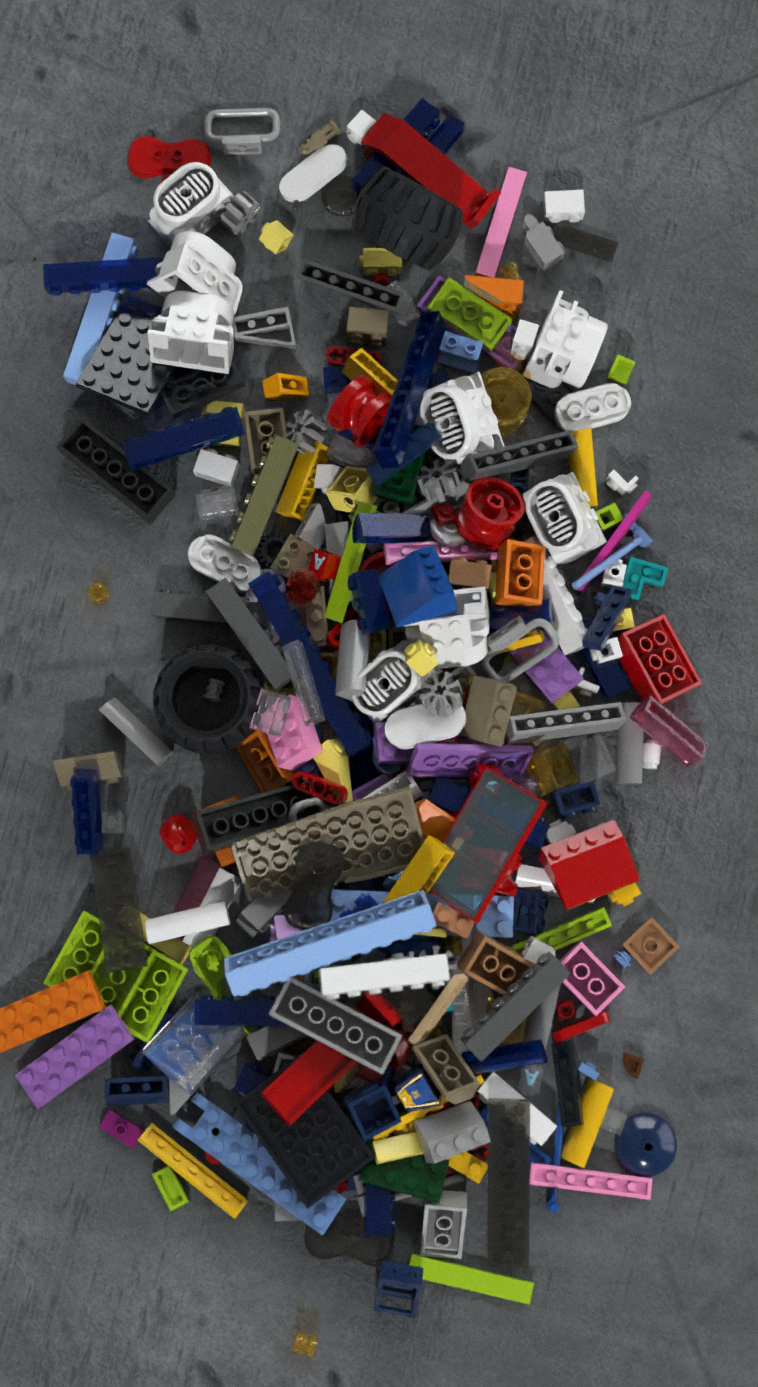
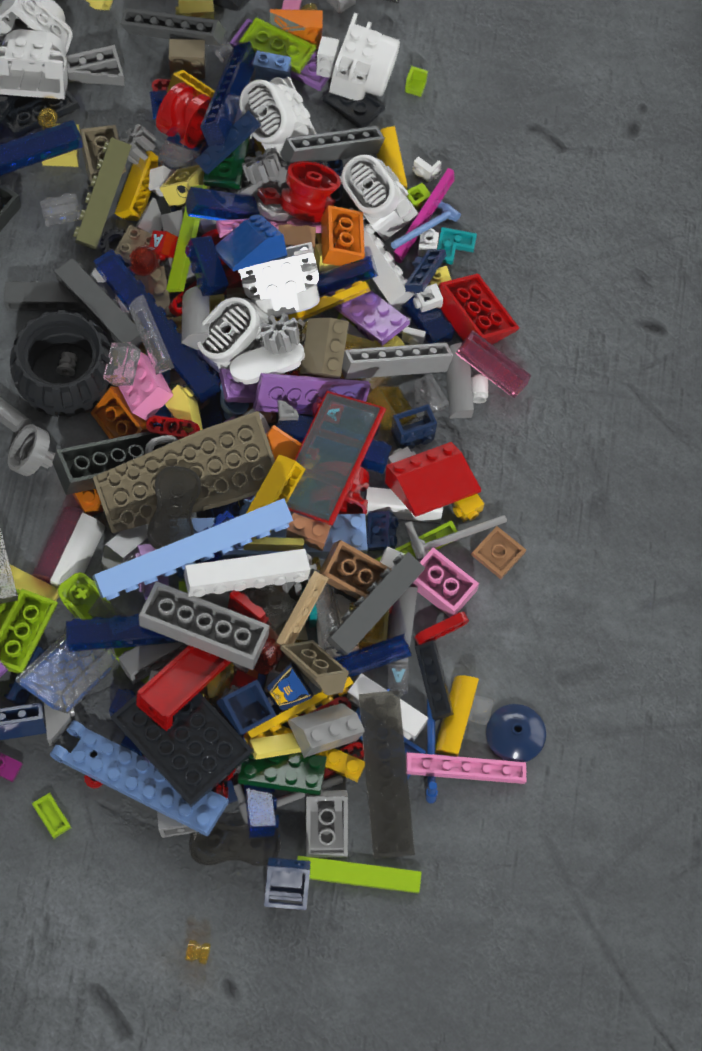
camera: 15 degrees left, 15 degrees down
(169, 794) = (30, 451): none -> light grey piece
(178, 833) = (35, 488): red hair -> none
(187, 922) = (54, 562): white brick -> none
(193, 1170) = (73, 795): yellow plate -> none
(207, 398) = (45, 121): none -> clear yellow wheel
(216, 467) = (57, 180): white brick -> none
(219, 560) = (58, 250): white tile -> none
(285, 387) = (116, 112): light orange slope -> none
(420, 657) = (257, 298): light yellow brick -> none
(441, 782) = (286, 411): none -> light grey tile
(509, 398) = (320, 101): clear yellow piece -> none
(509, 634) = (340, 283): light grey bar -> none
(569, 937) = (421, 548): none -> light grey bar
(570, 1010) = (427, 611): red plate -> none
(588, 1069) = (452, 667): medium blue plate -> none
(592, 407) = (397, 110): white tile -> none
(622, 959) = (473, 567): medium blue plate -> none
(632, 1064) = (494, 661): reddish brown tile -> none

